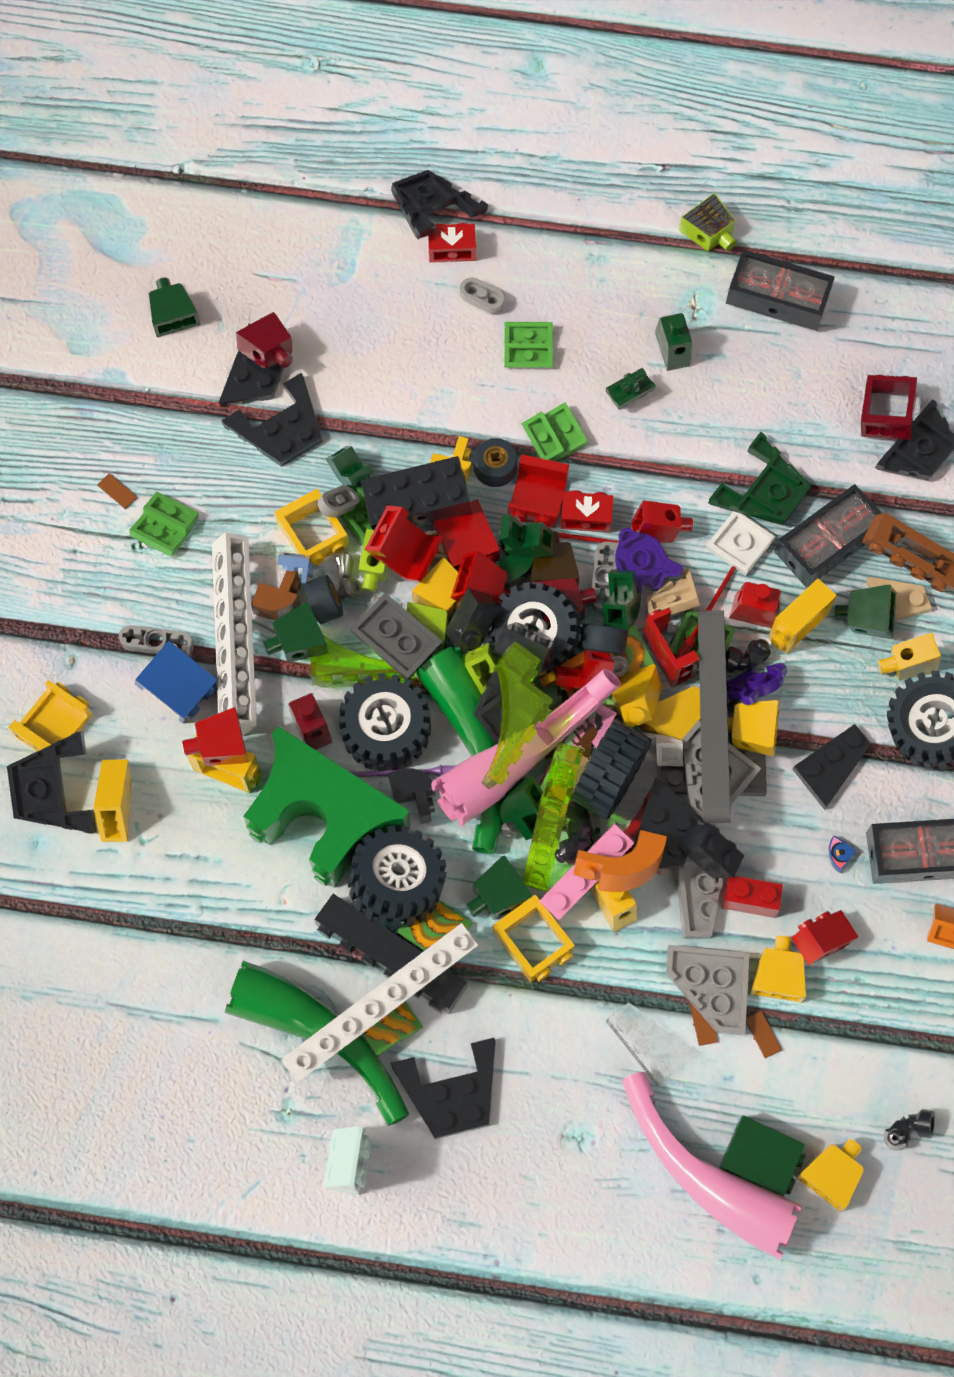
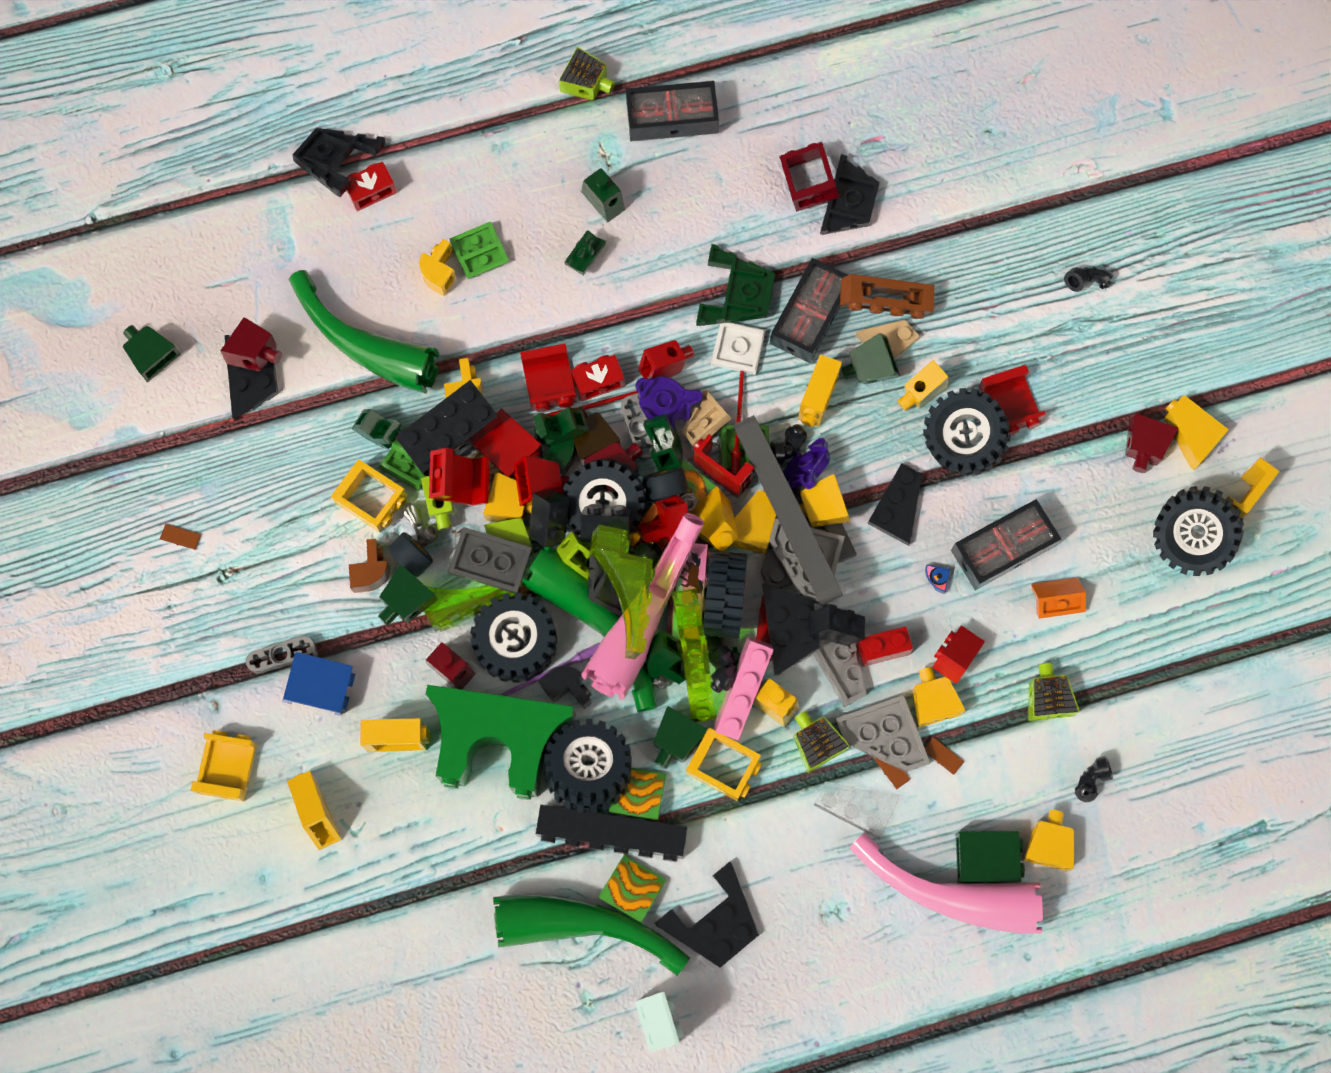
camera: 25 degrees left, 5 degrees up
(39, 790) = (243, 830): black wing -> none
(164, 524) = (237, 548): bright green slope -> none
(218, 740) = (383, 721): red torso -> none
(234, 628) = (347, 619): white brick -> none
(286, 433) = (304, 421): black wing -> none
(294, 561) = (369, 534): medium blue bracket -> none
(338, 501) = (382, 463): light grey plate -> none
(379, 1002) = (625, 880): white brick -> none
(393, 408) = (390, 358): none -> green brick
(477, 344) = (433, 268): none -> yellow brick
(483, 295) = (419, 221): light grey plate -> none
(498, 471) = (500, 377): black wheel -> none
(555, 433) = (538, 319): bright green slope -> none
(623, 872) = (778, 677): orange arch -> none
(639, 960) = (817, 741): none -> torso
(665, 750) = (758, 555): white slope -> none
(756, 604) = (776, 397): red torso -> none
(903, 1024) = (1050, 696): none -> torso

